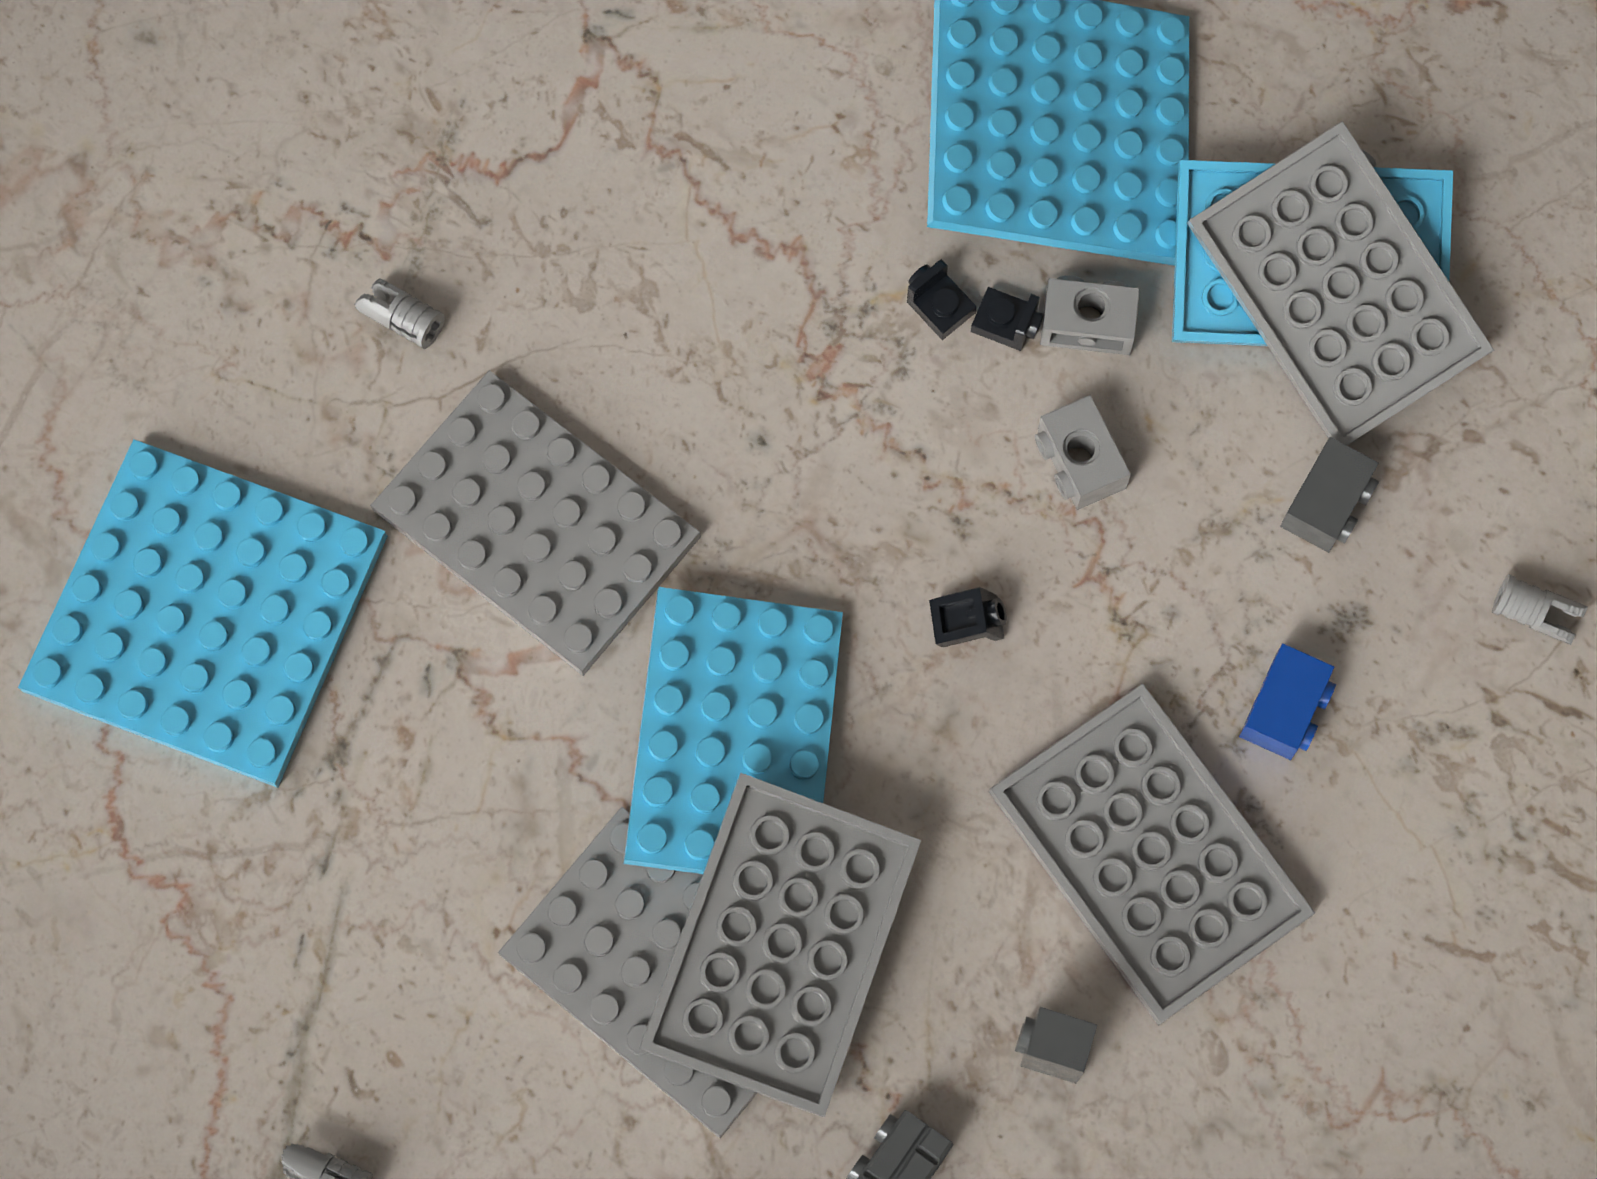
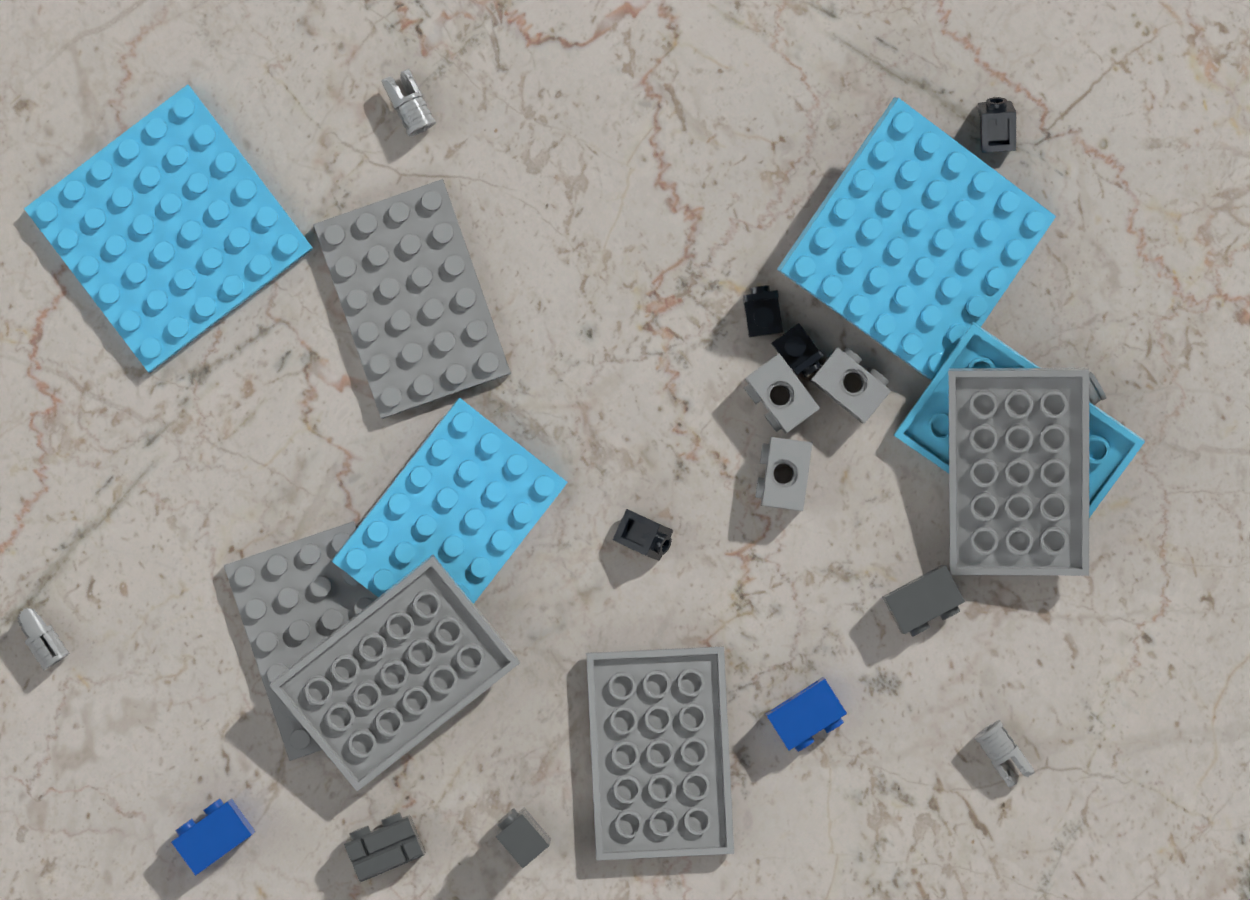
camera: 25 degrees right, 15 degrees up
(1006, 350) = (778, 373): none -> light grey brick

